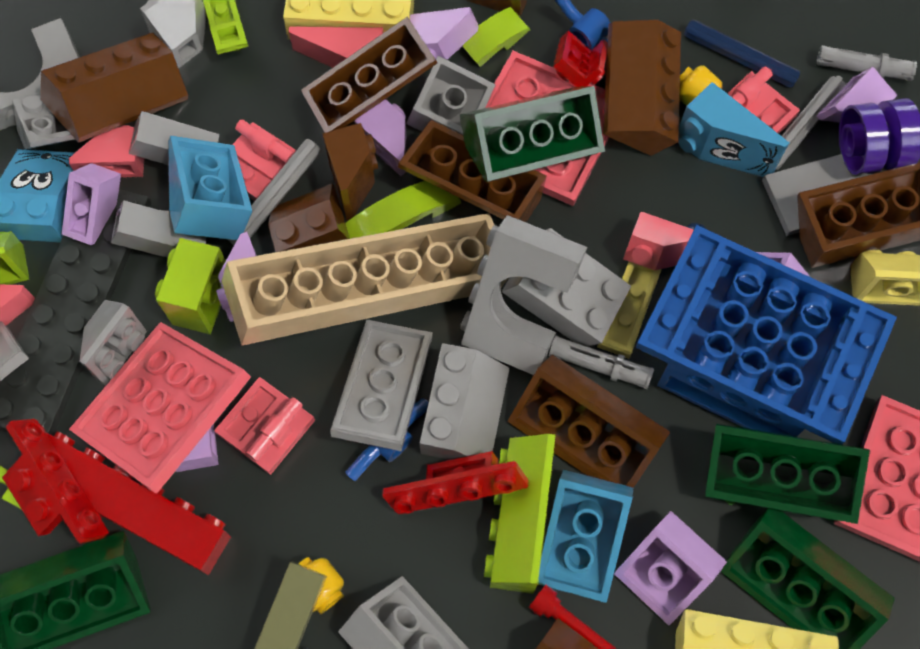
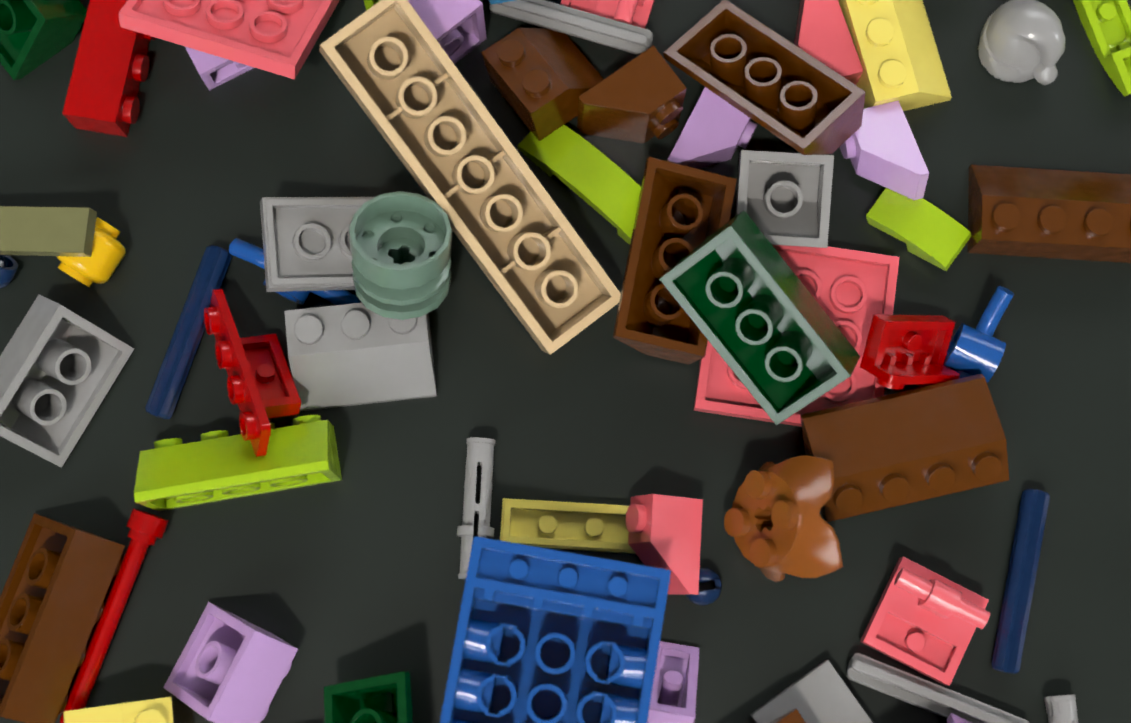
camera: 70 degrees right, 10 degrees up
(265, 425) = (265, 124): coral plate -> none
(404, 529) = (187, 333): none -> dark blue axle
(413, 339) = (401, 255): none -> sand green wheel
(517, 252) = (545, 368): light grey arch -> none
(581, 313) = (549, 431): light grey brick -> none
(584, 535) = (243, 550): dark azure slope -> none
(589, 424) = (383, 516): reddish brown slope -> none
(660, 143) = (780, 519): none -> dark orange brick
(694, 82) = (932, 532): yellow head -> none
(729, 135) = (865, 586): dark azure slope -> none

